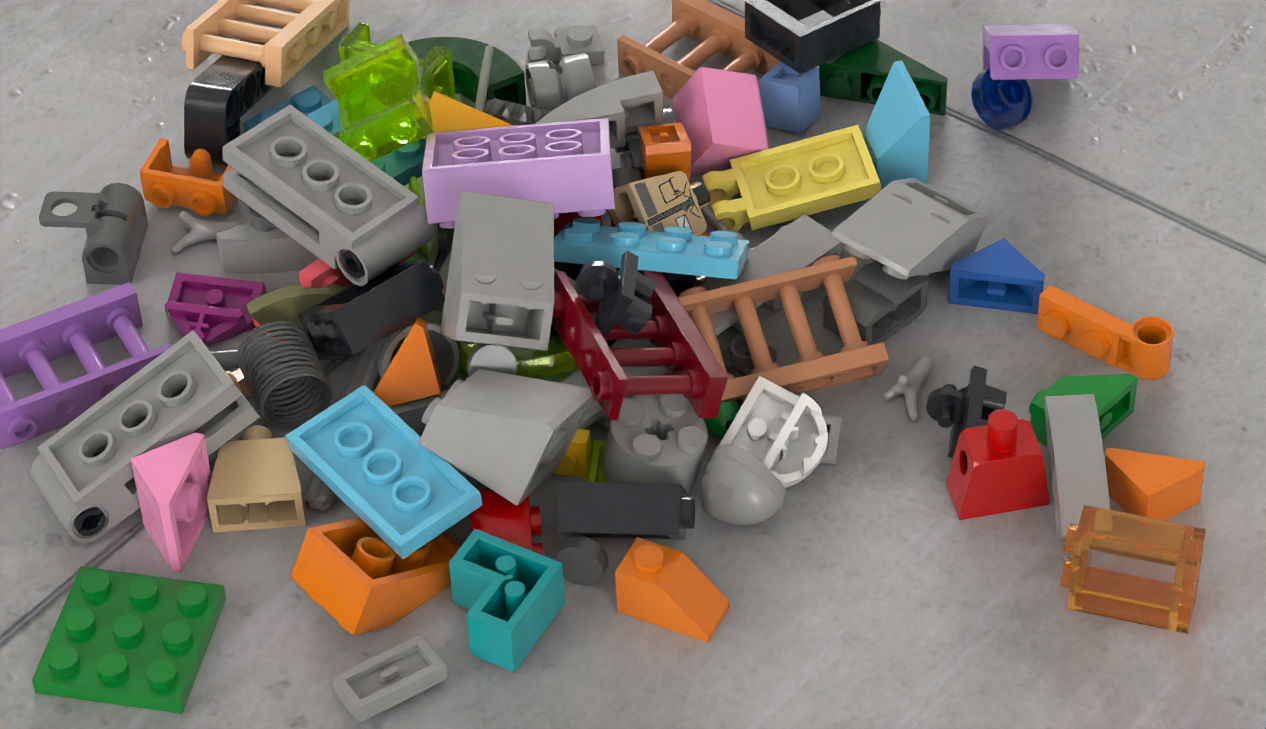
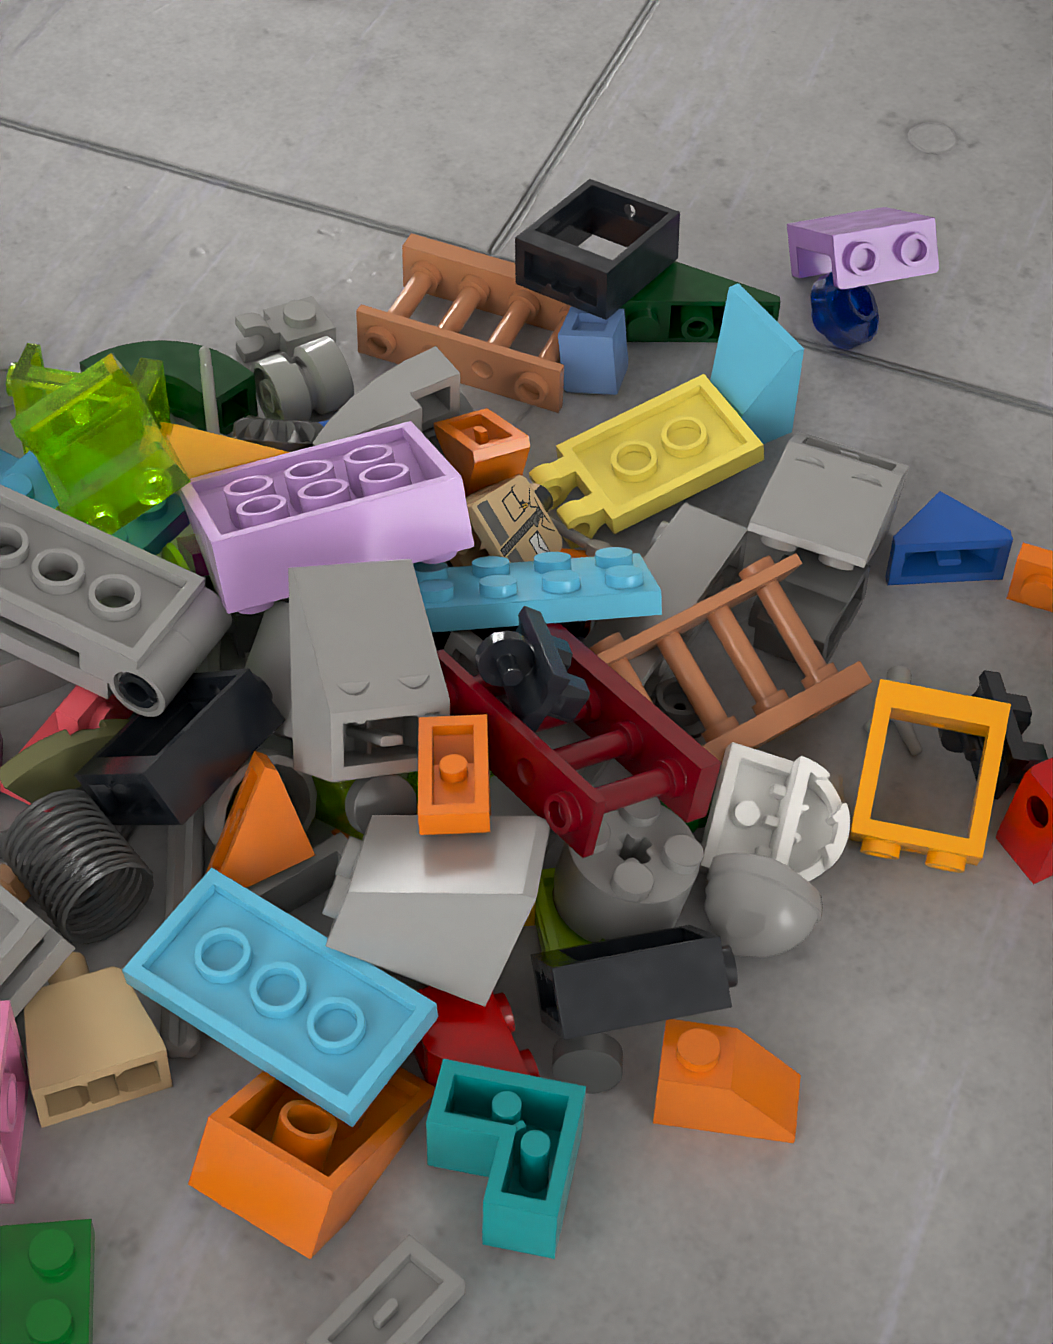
camera: 20 degrees left, 5 degrees up
(538, 350) = (453, 775): none -> orange slope
(721, 117) = (529, 385): bright pink slope -> none
(917, 380) = (942, 711): none -> light orange window

